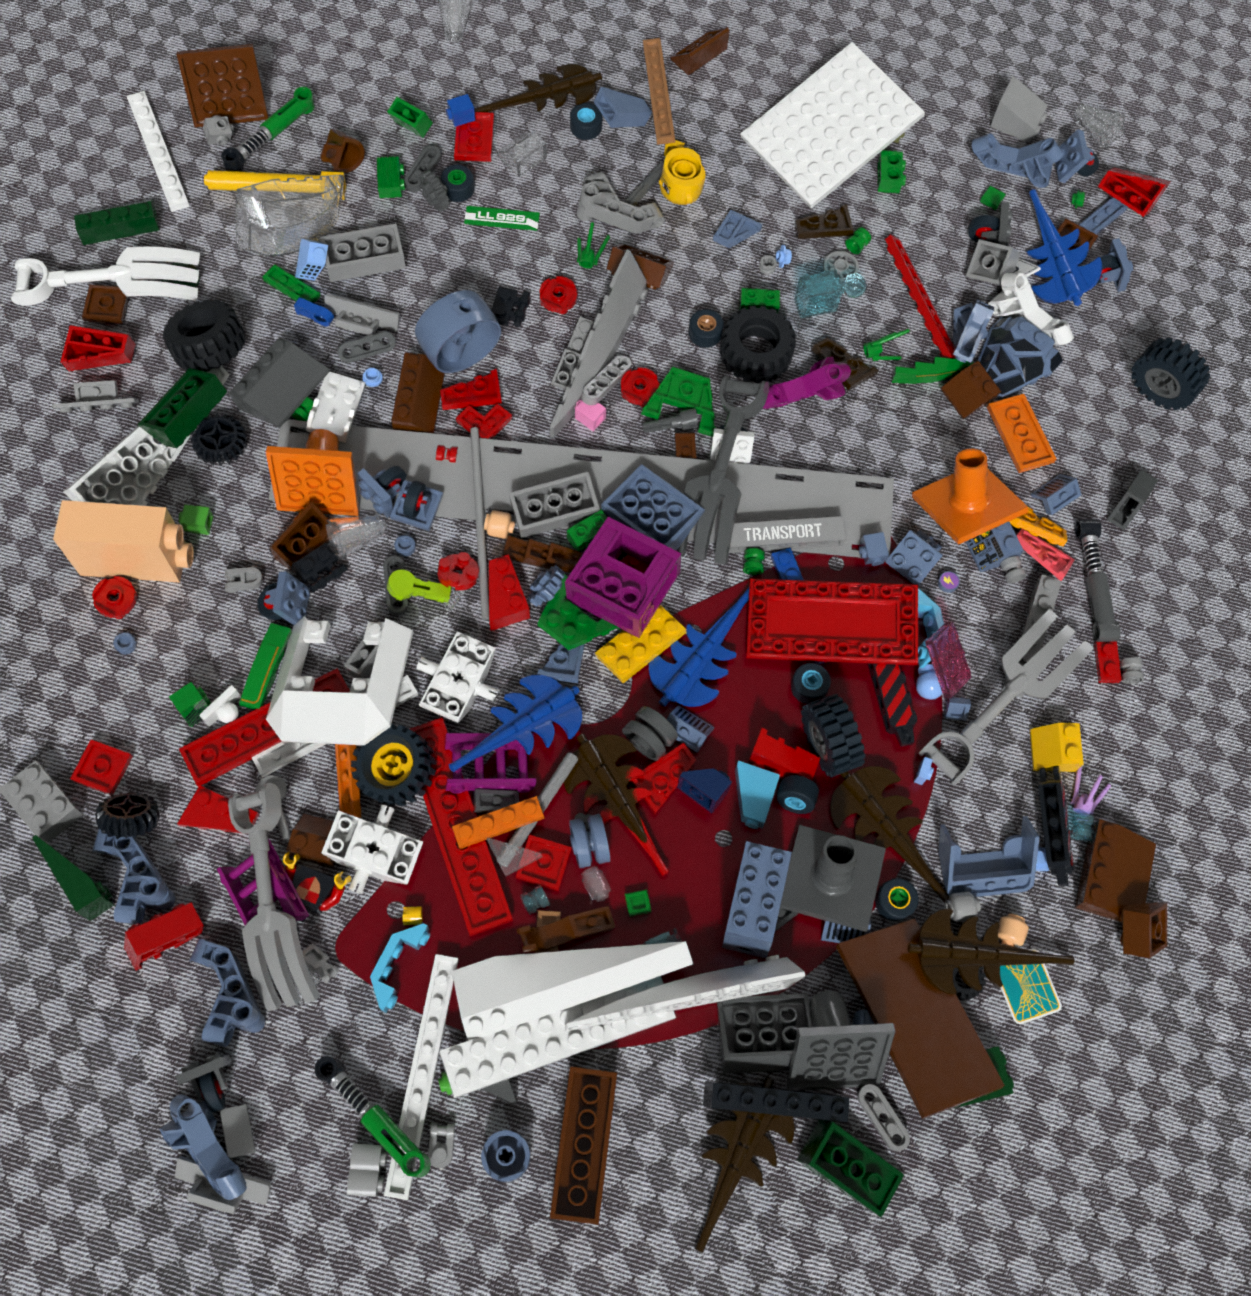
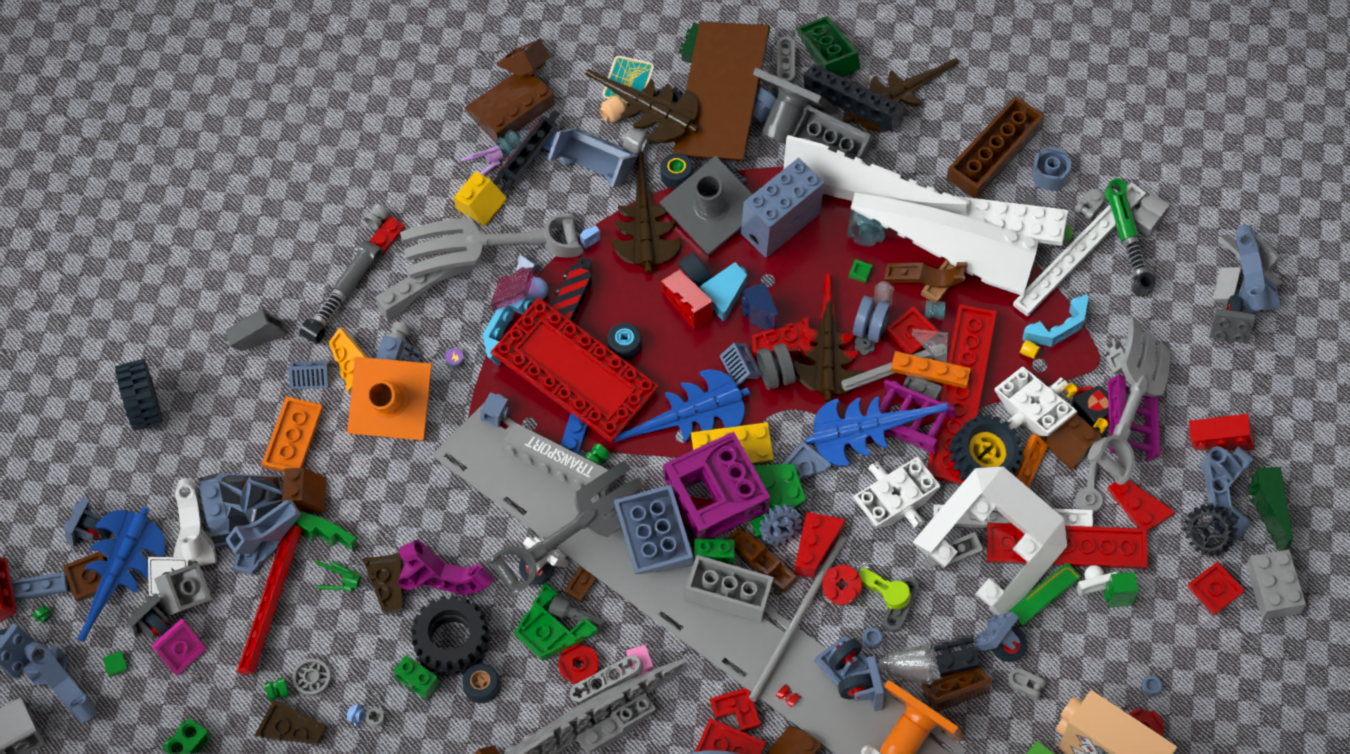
camera: 140 degrees left, 5 degrees down
(230, 1008) = (1193, 352): sand blue connector -> none
(499, 524) = (783, 604): light nougat head -> none
(822, 292) = (352, 647): clear light blue brick -> none
(833, 735) = (644, 281): black wheel -> none
(915, 556) = (467, 383): sand blue plate -> none
(956, 223) = (178, 647): none -> dark pink plate
(1046, 554) = (363, 326): coral wing -> none

